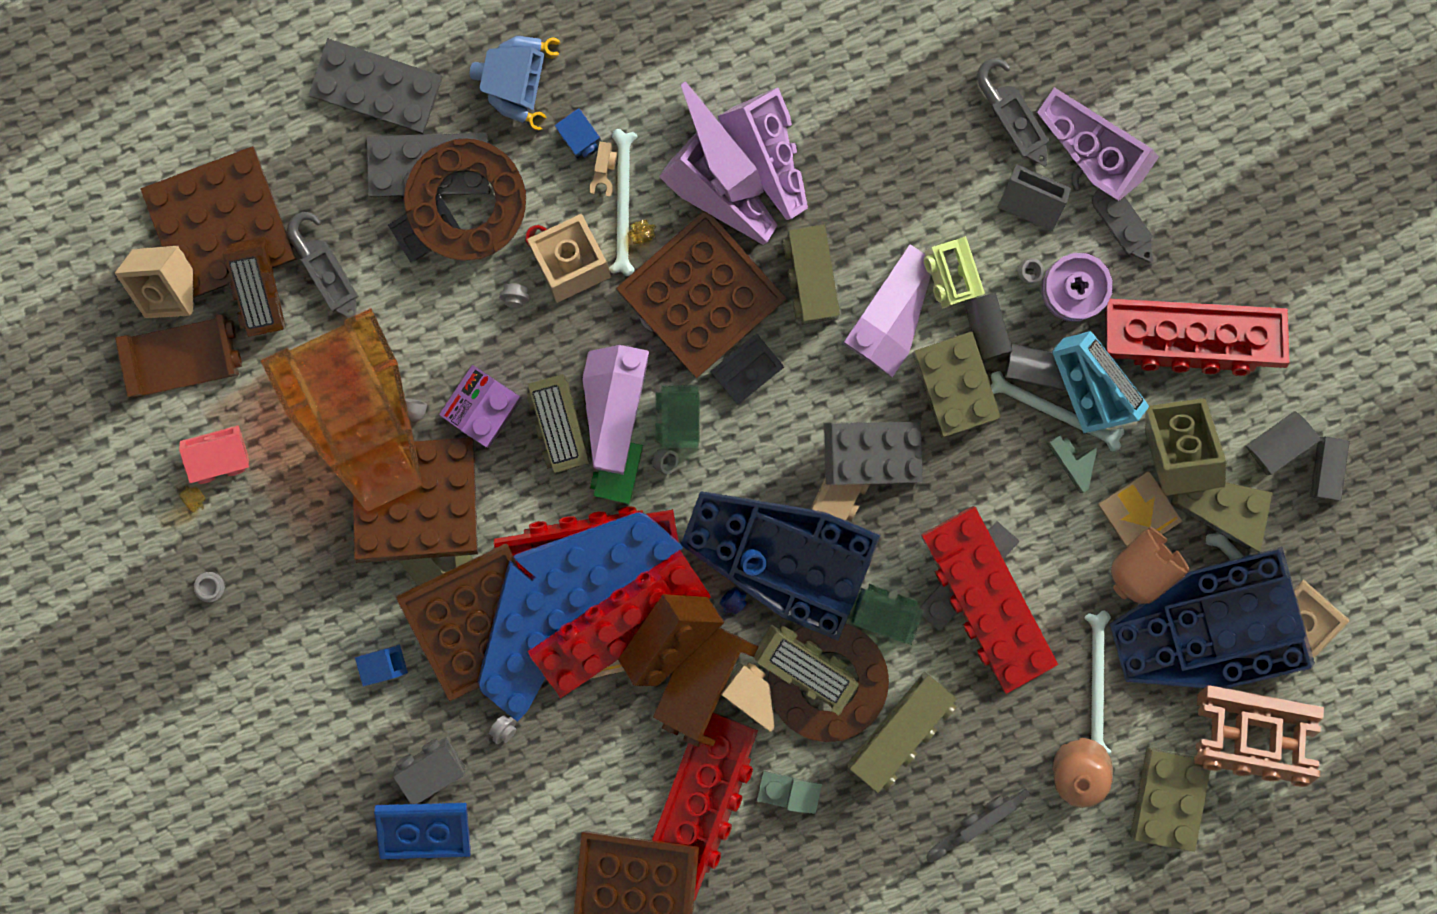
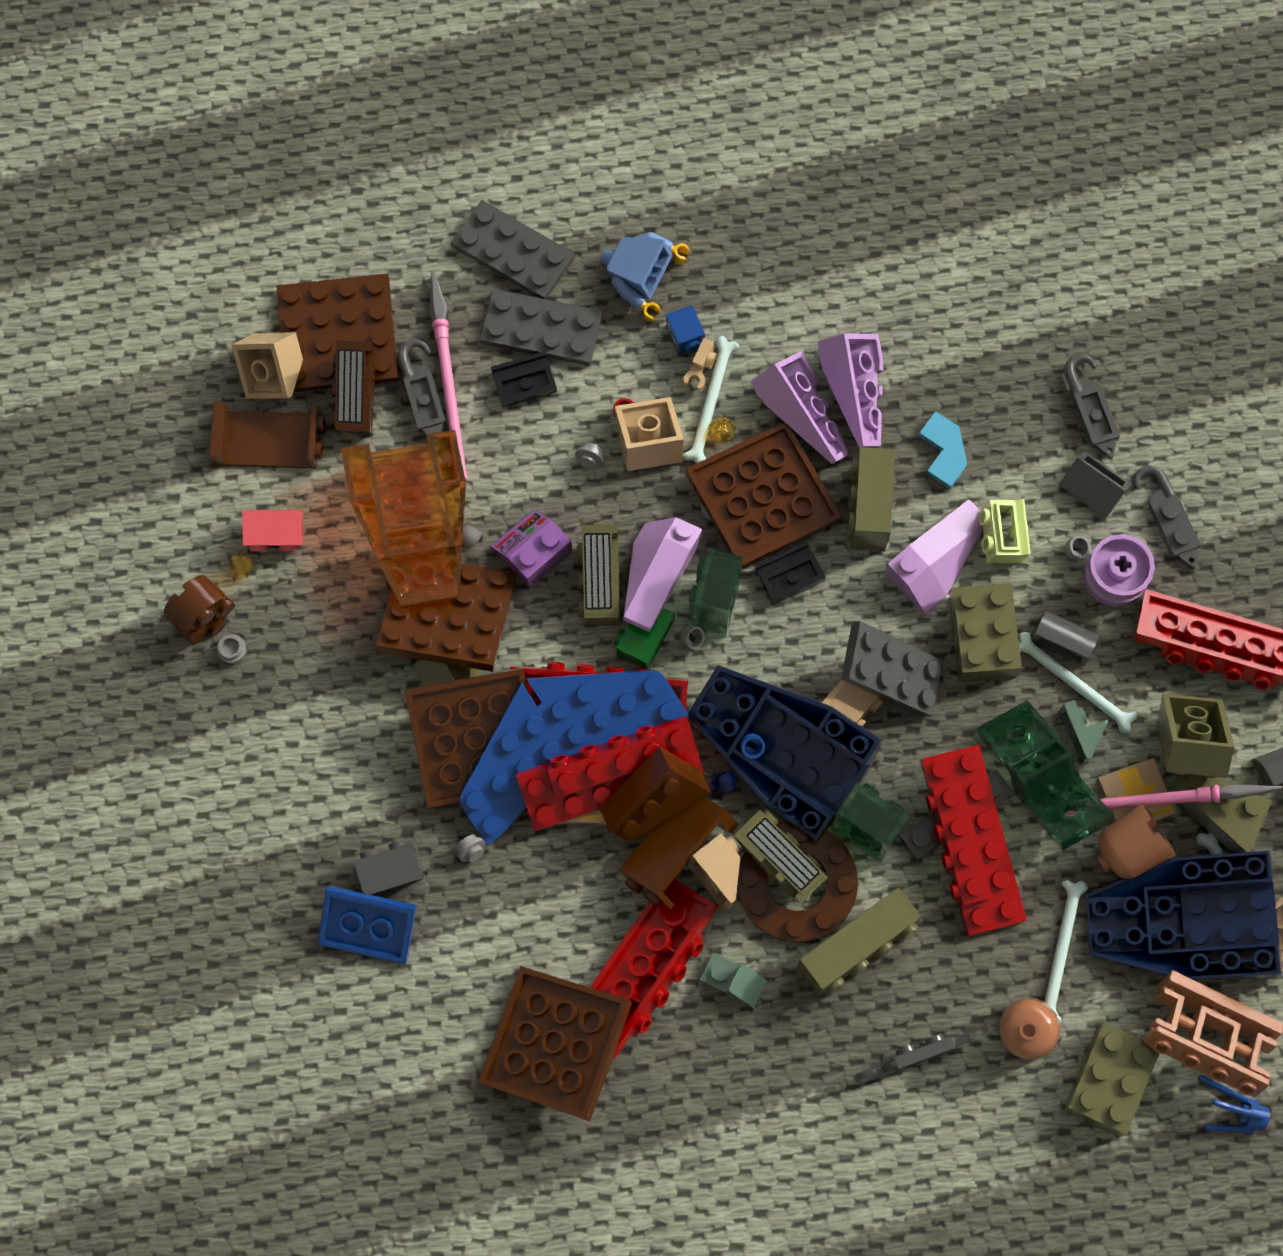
camera: 15 degrees right, 15 degrees down
(165, 560) = (198, 609): none -> reddish brown brick
(317, 176) = (440, 325): none -> bright pink piece
(381, 665) = (372, 759): blue brick -> none
(475, 157) = (572, 320): reddish brown plate -> none
(729, 166) = (818, 380): lavender wedge -> none
(873, 183) = (947, 438): none -> medium azure tile
(988, 326) = (1027, 586): dark grey brick -> none
(1046, 519) = (1045, 775): none -> clear green bracket
(1096, 384) = (1120, 659): medium azure wedge -> none
(1101, 149) = (1167, 452): lavender wedge -> none
(1202, 507) = (1202, 794): none -> bright pink piece
(1307, 799) = (1251, 1115): none -> blue plant

